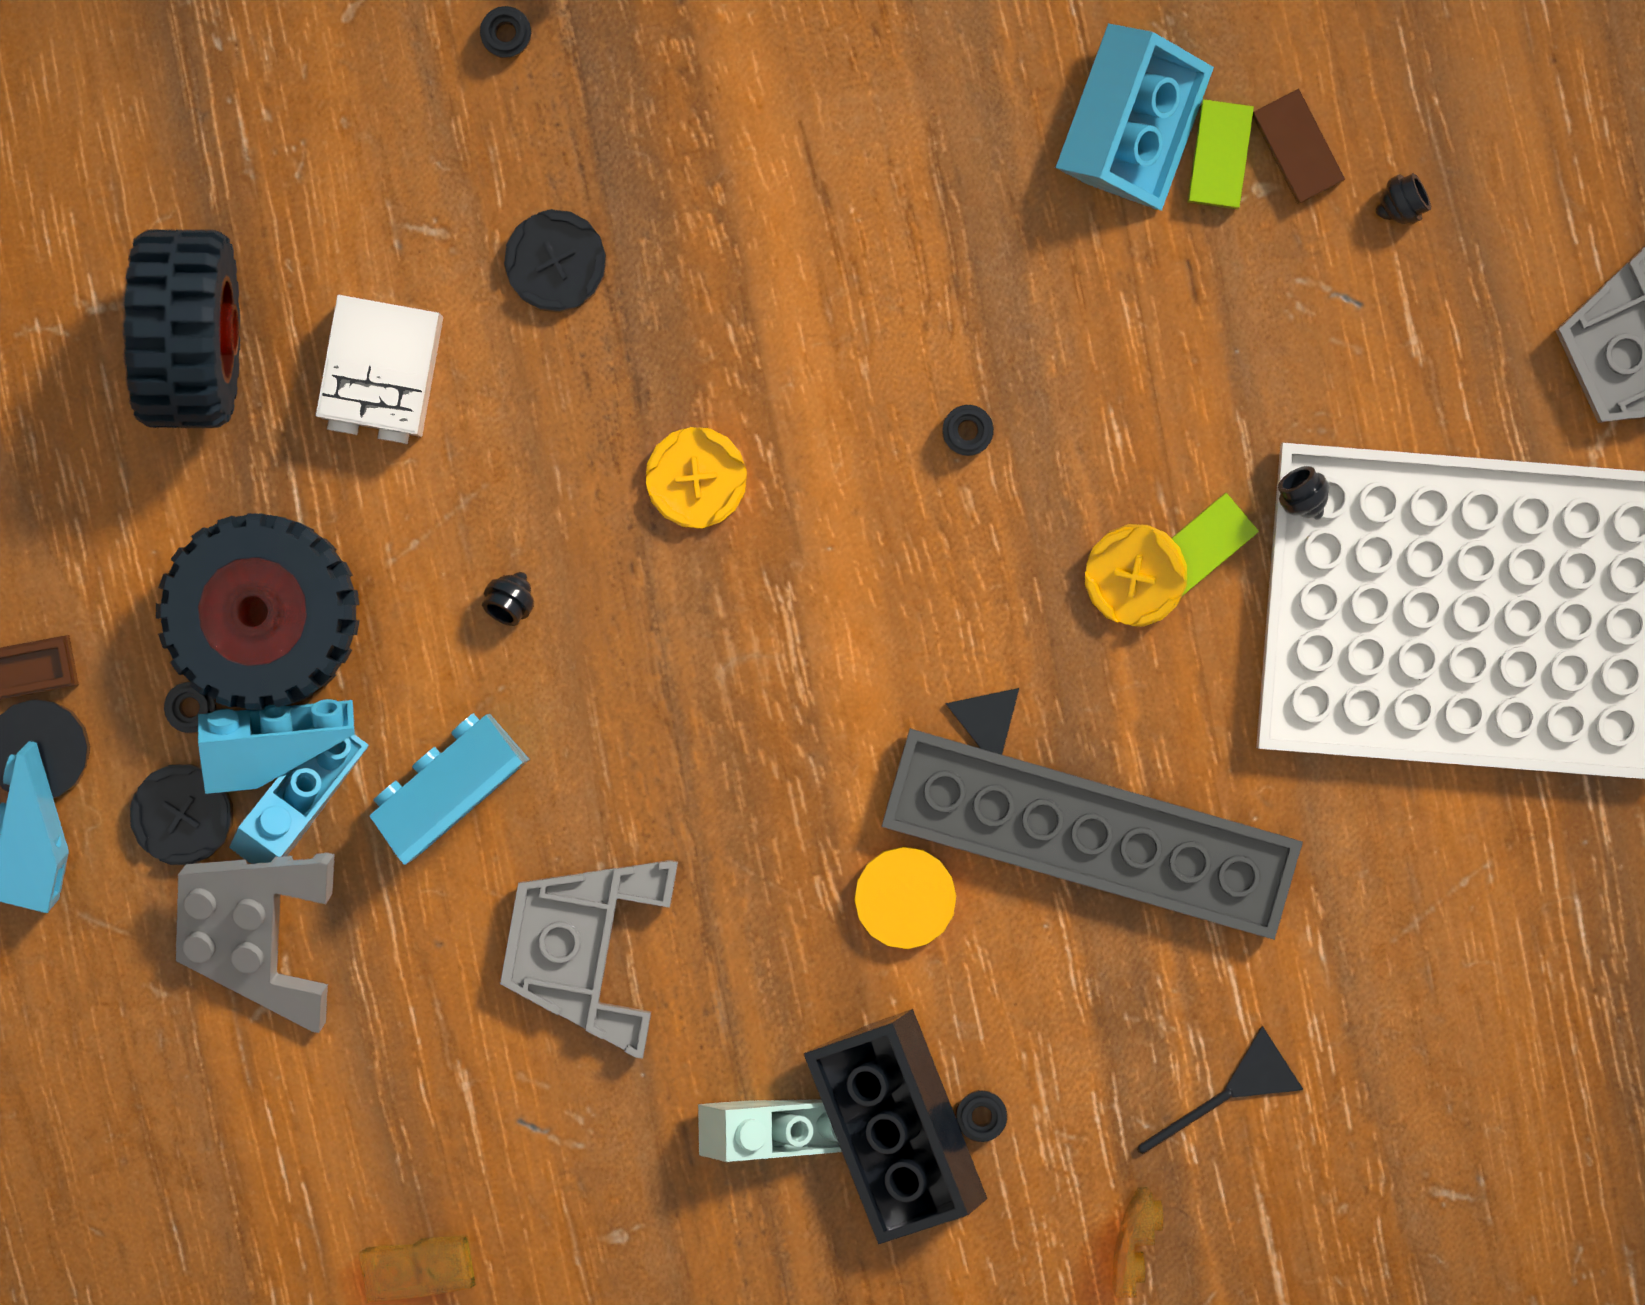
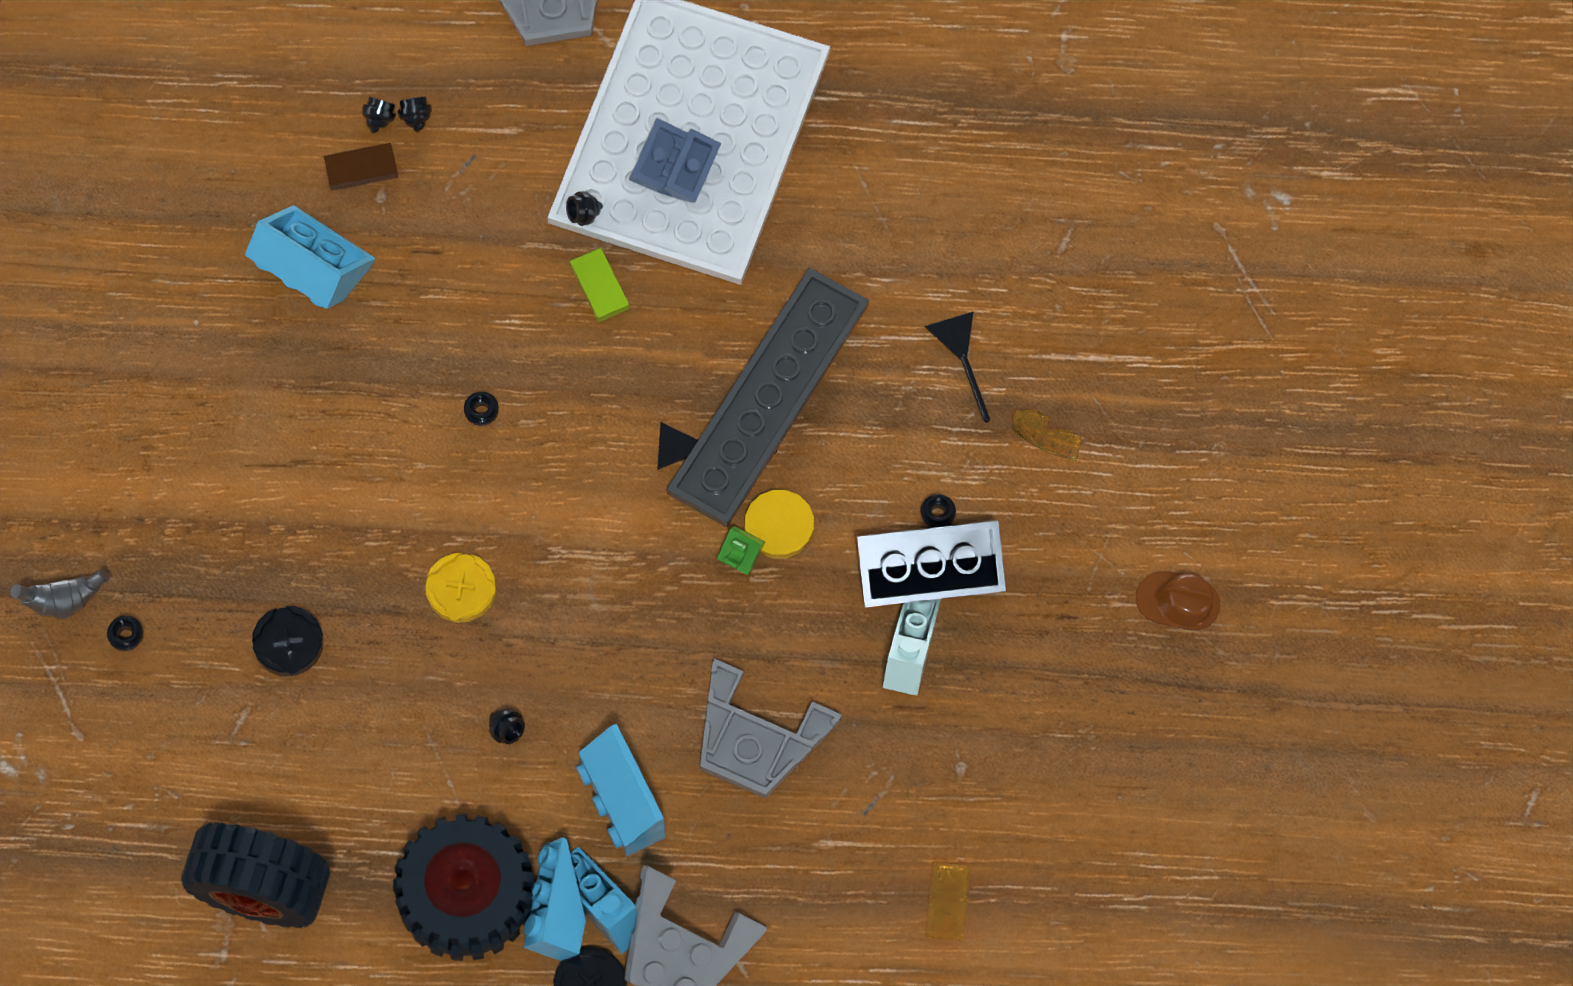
camera: 85 degrees left, 20 degrees down
(174, 712) = (509, 950): black plate -> none
(379, 368) = (323, 769): white brick -> none
(847, 855) = (740, 550): none -> bright green tile
(1136, 575) = (606, 327): yellow tile -> none
(1220, 154) = (350, 213): lime tile -> none
(1388, 147) = (378, 114): none -> black plate
(1416, 604) = (675, 161): none -> sand blue slope

